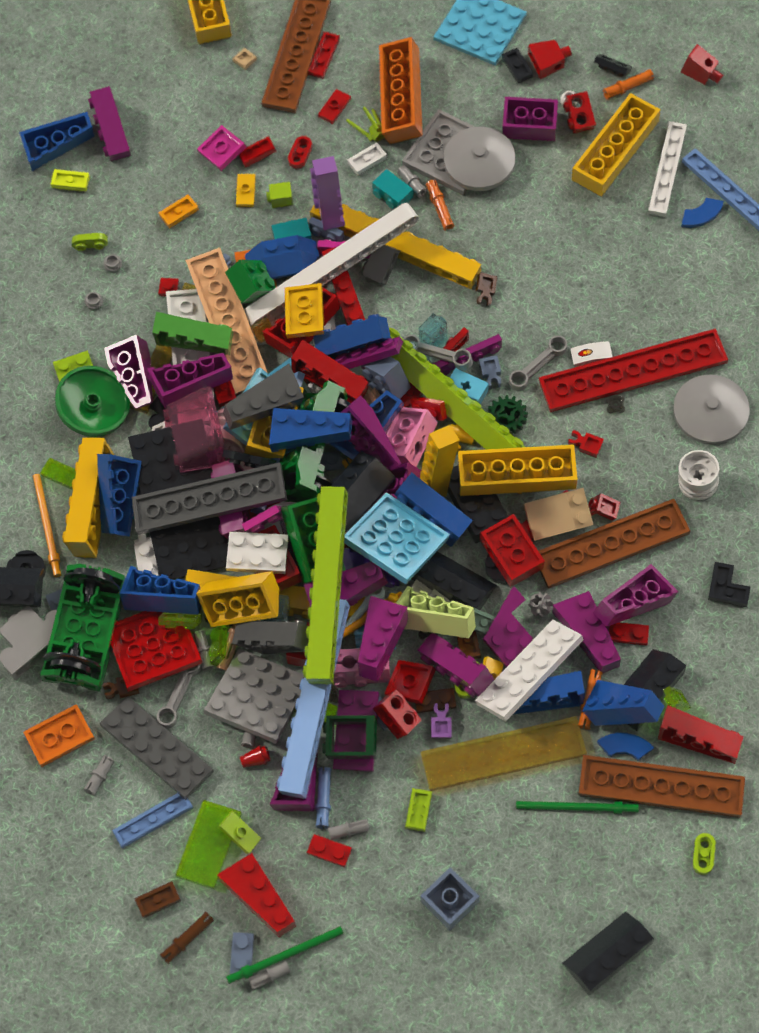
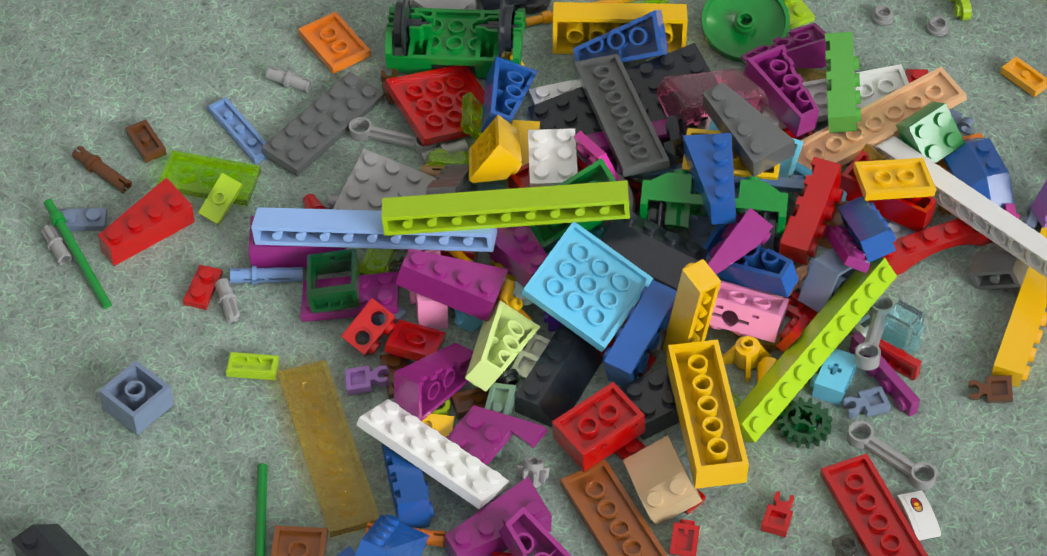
camera: 80 degrees right, 15 degrees down
(291, 228) = (1023, 182): teal brick -> none

